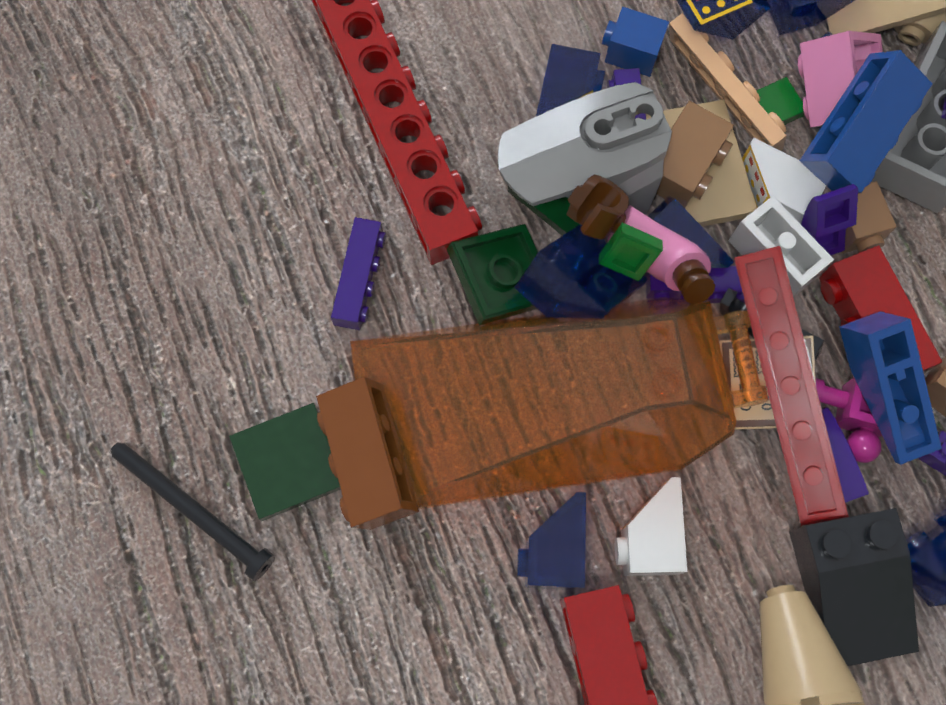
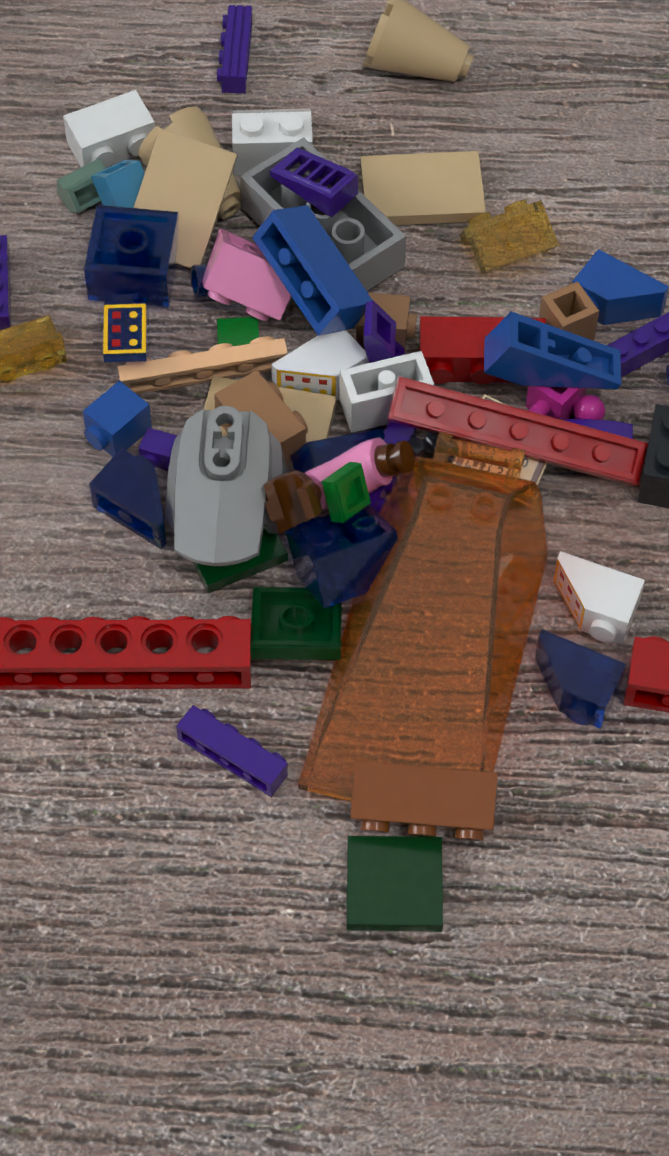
camera: 65 degrees left, 15 degrees down
(256, 561) = (483, 943): black bar -> none

